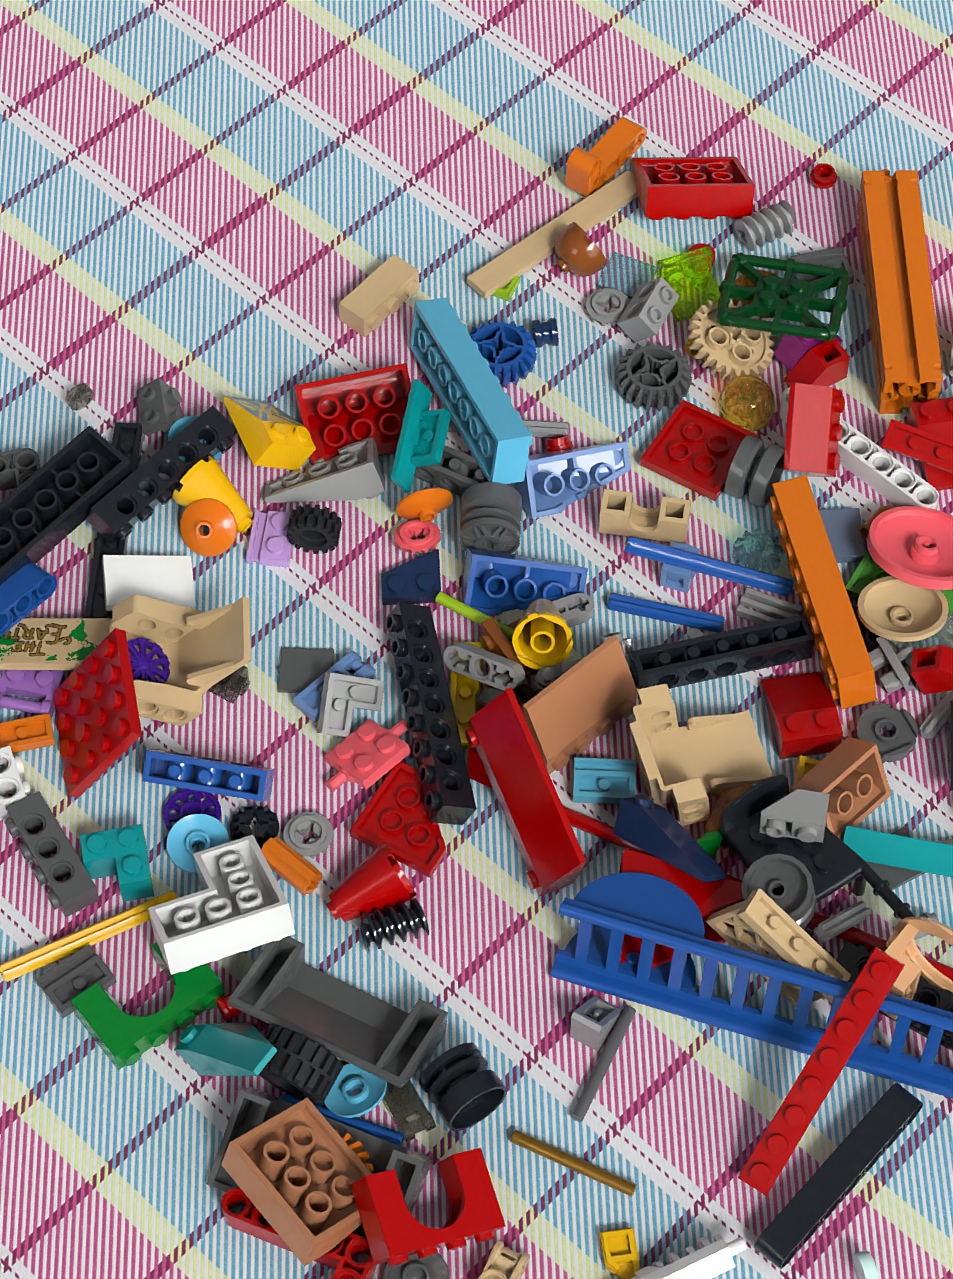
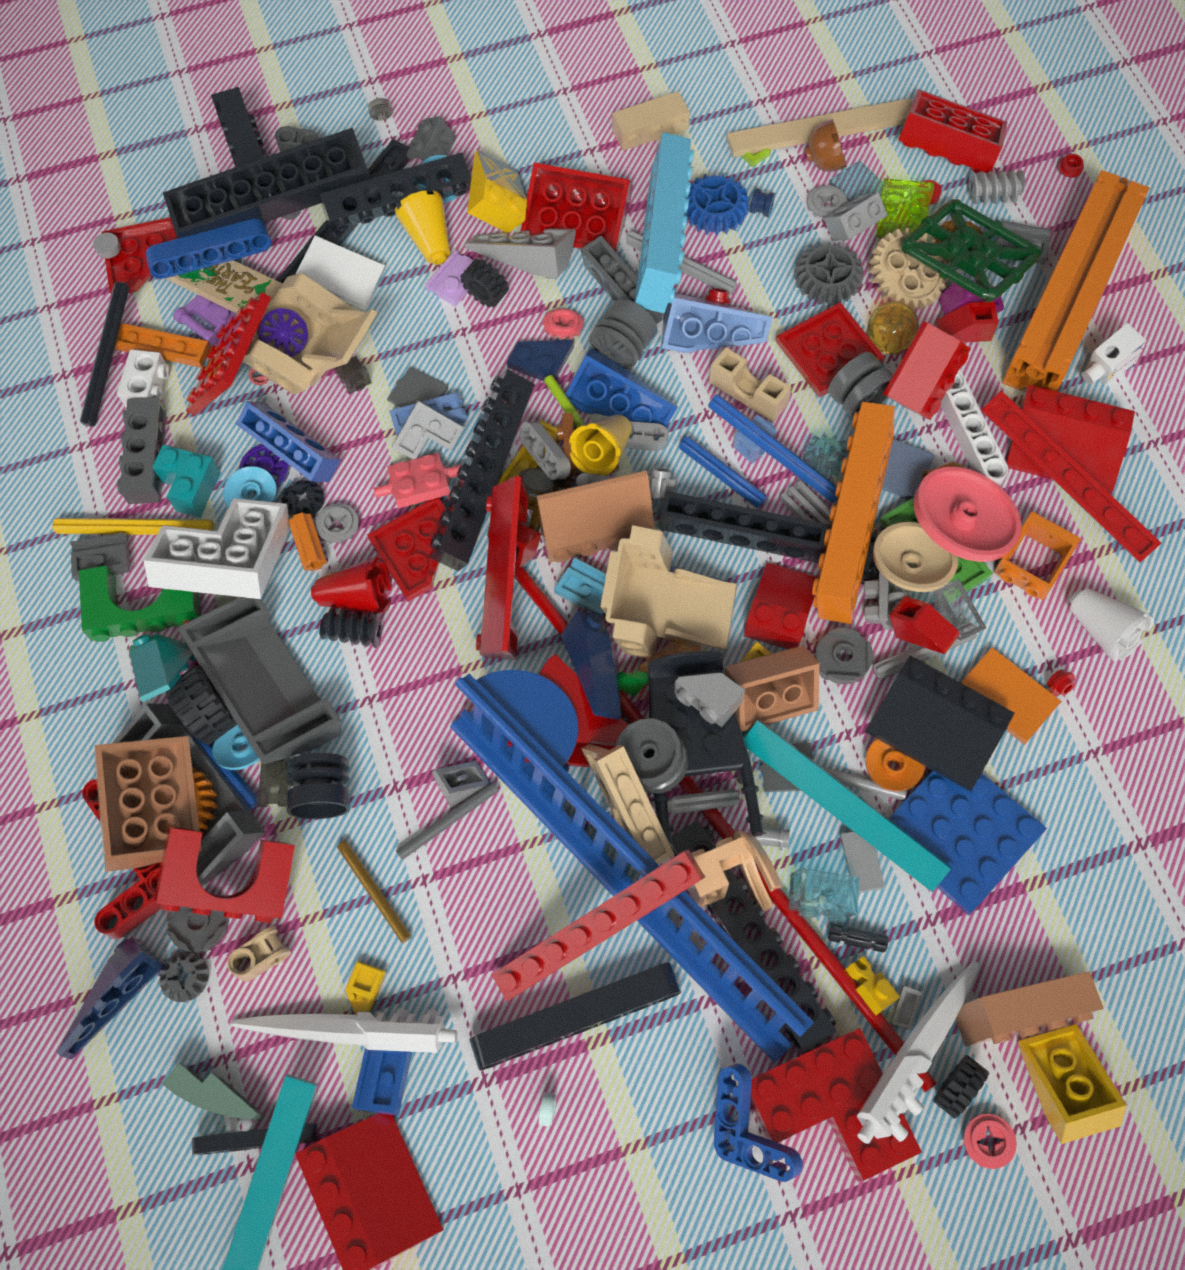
camera: 30 degrees right, 10 degrees up
(218, 519) = (408, 248): orange dish -> none
(421, 436) = (601, 241): teal bracket -> none
(424, 504) = (580, 299): orange dish -> none
(593, 169) = (878, 87): orange beam -> none

